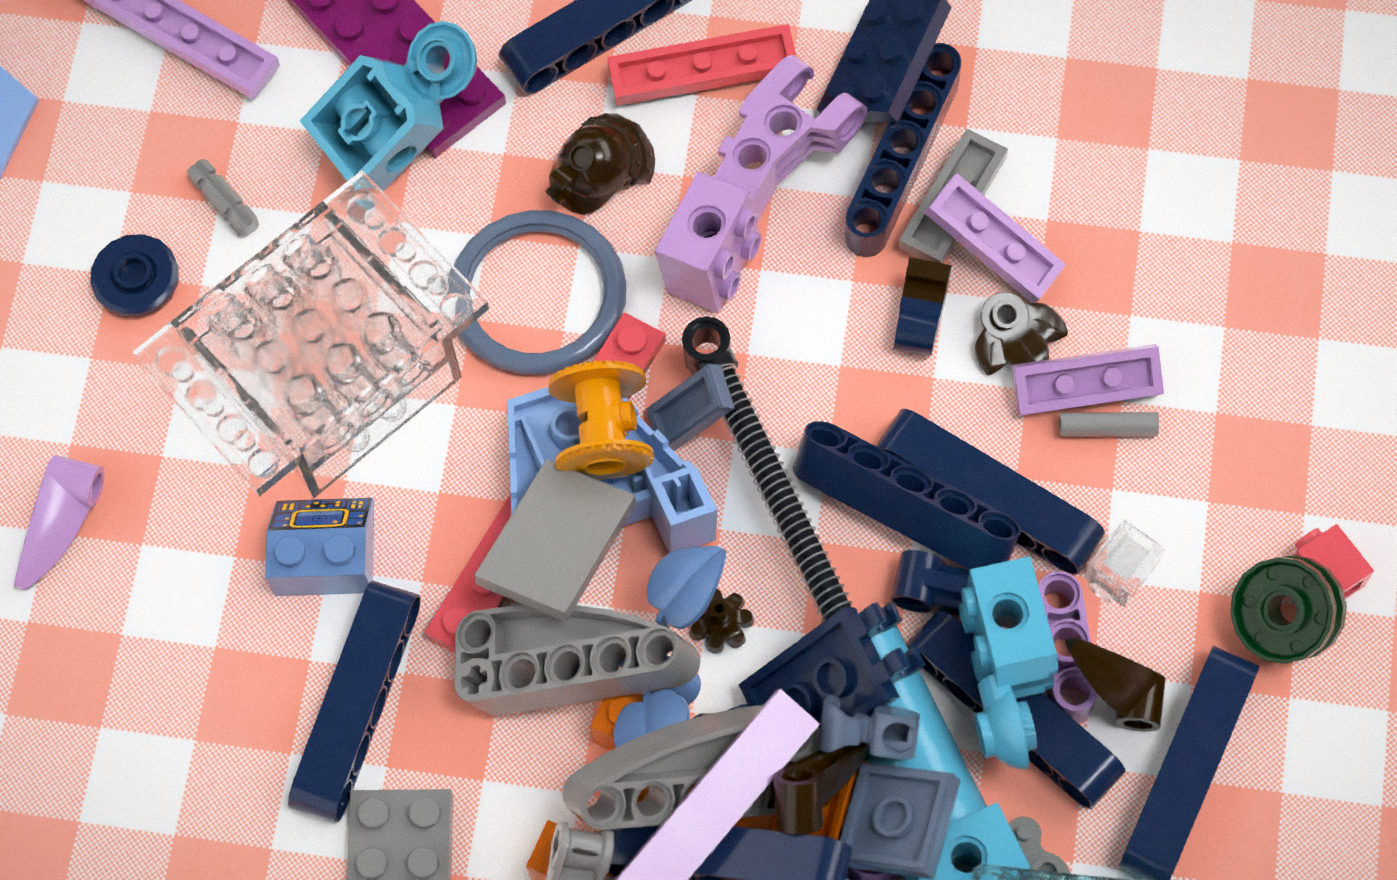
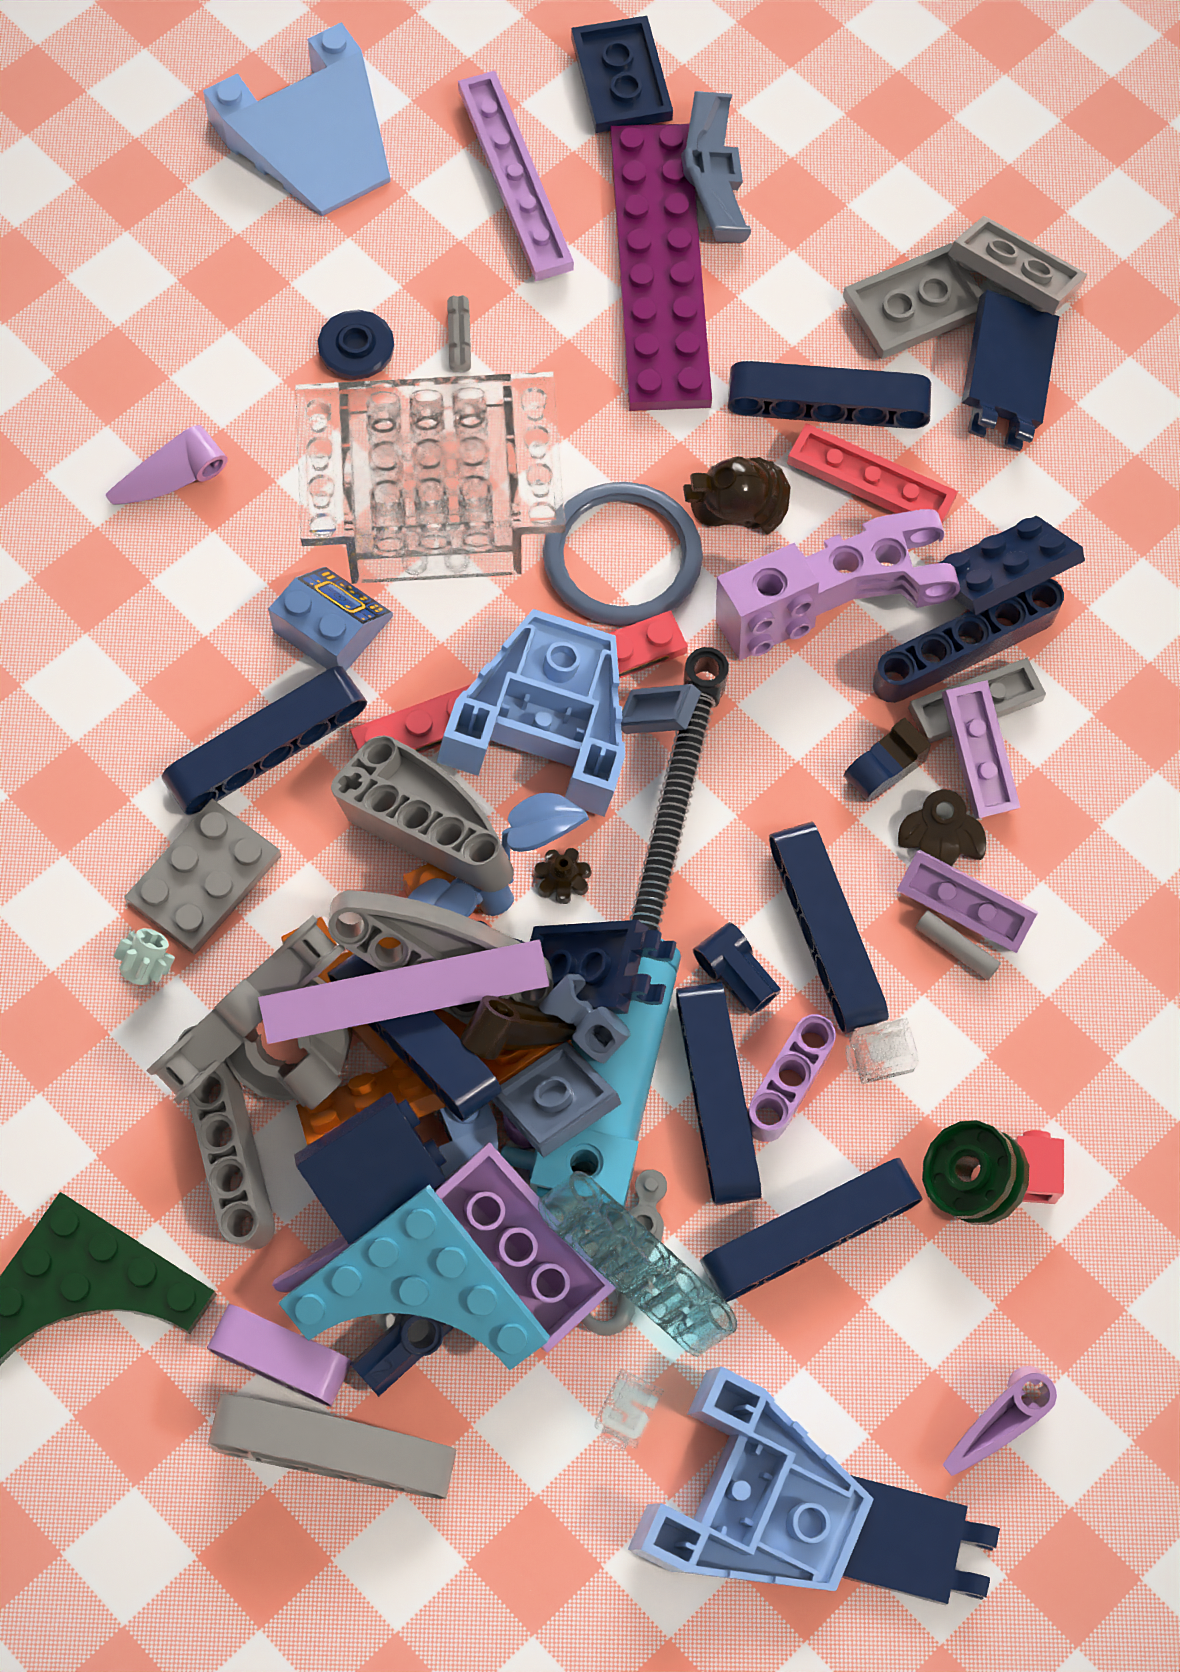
camera: 30 degrees right, 0 degrees up
(387, 111) = (614, 349): medium azure brick -> none
(555, 540) = (479, 725): light grey tile -> none
(605, 418) = (584, 669): light orange hose -> none
(904, 497) = (761, 887): dark blue beam -> none
(1009, 660) = (732, 1050): medium azure brick -> none
(1123, 684) = (805, 1132): dark brown piece -> none

